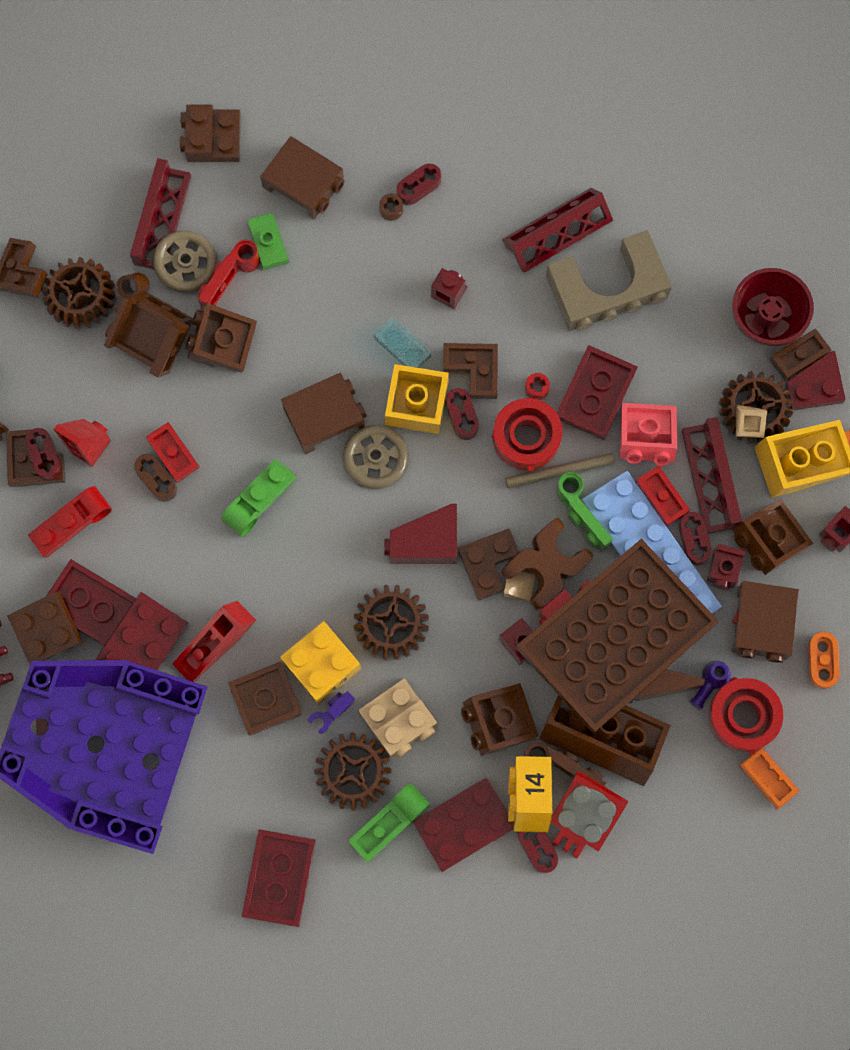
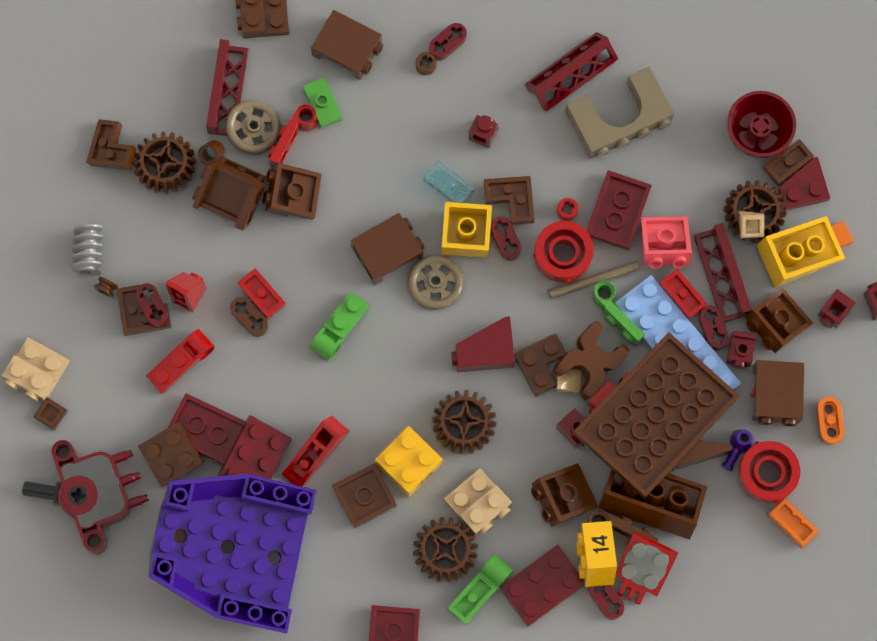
camera: 10 degrees left, 0 degrees up
(338, 705) = (426, 495): dark purple plate -> none

